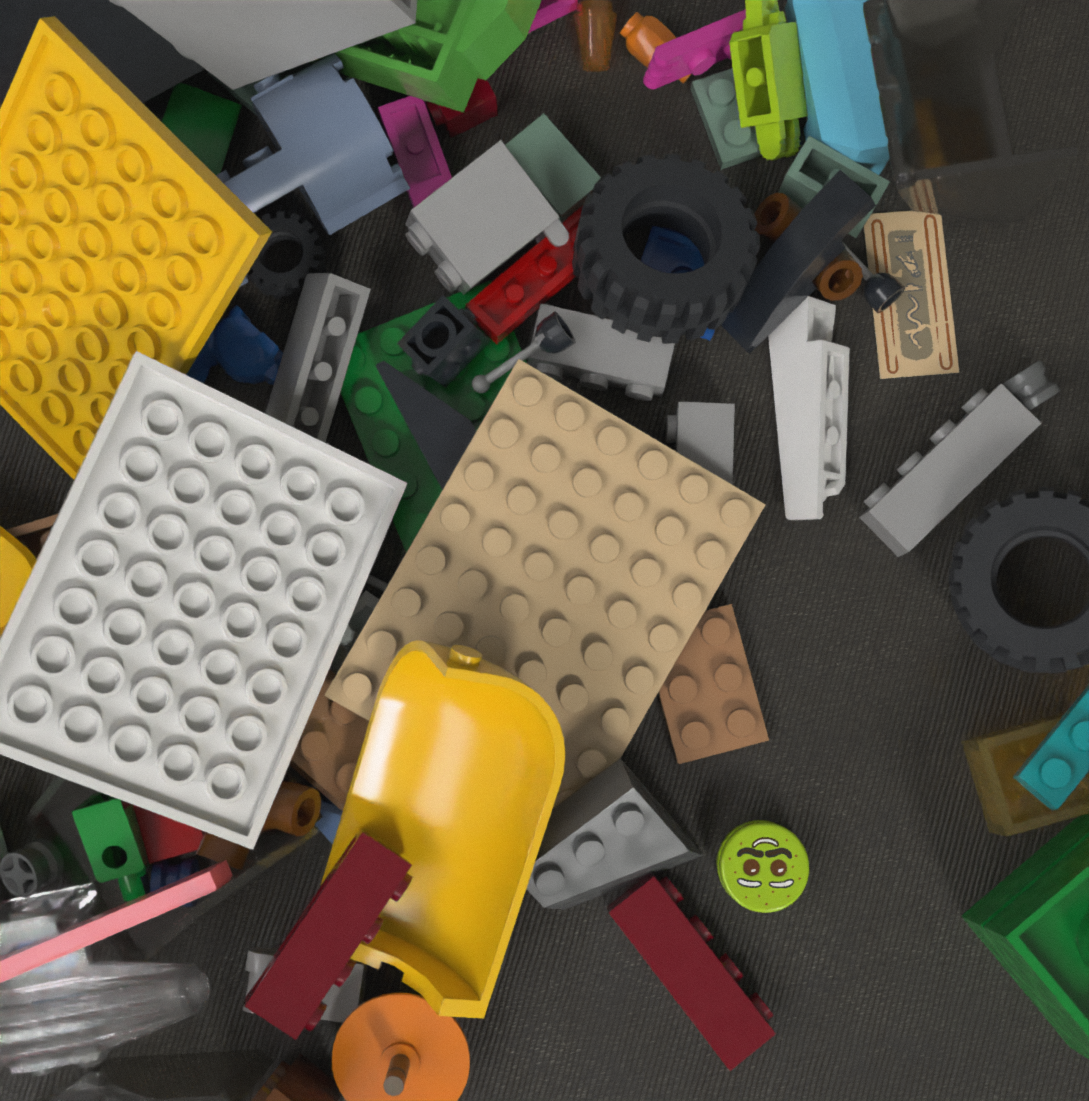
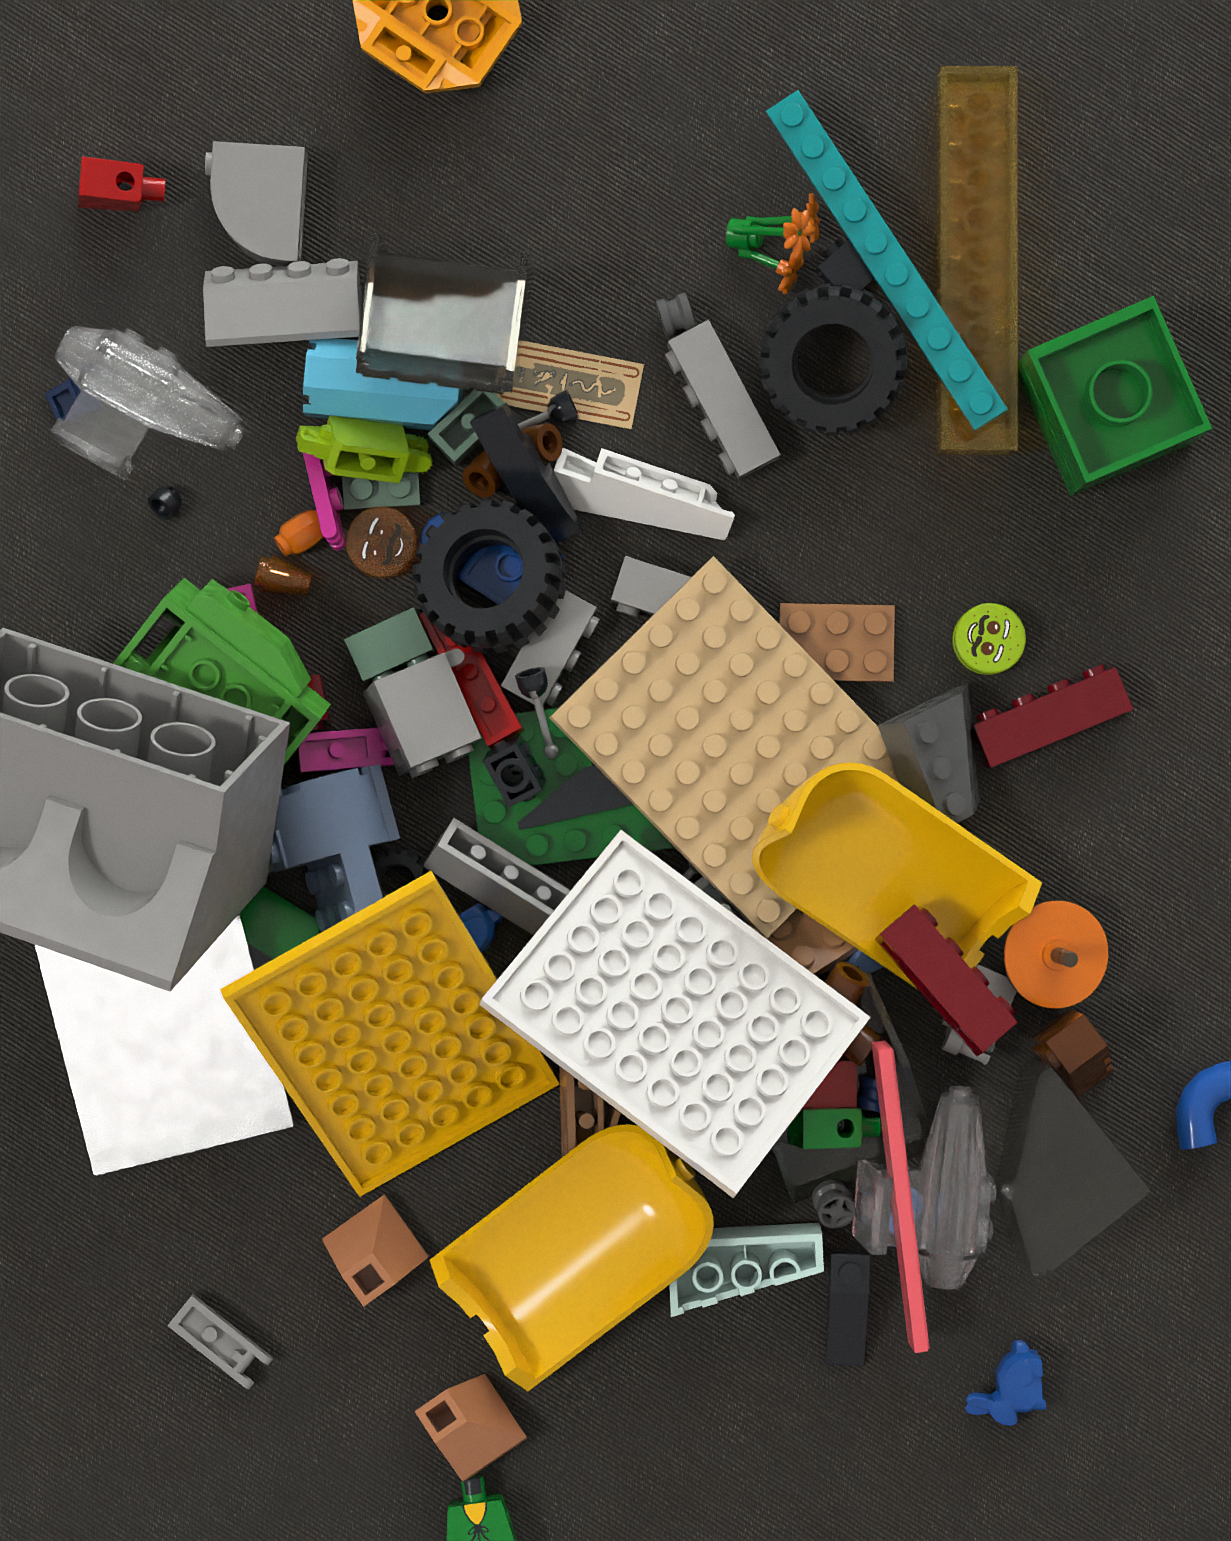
camera: 75 degrees left, 5 degrees up
(667, 123) = (381, 542): none -> clear orange head

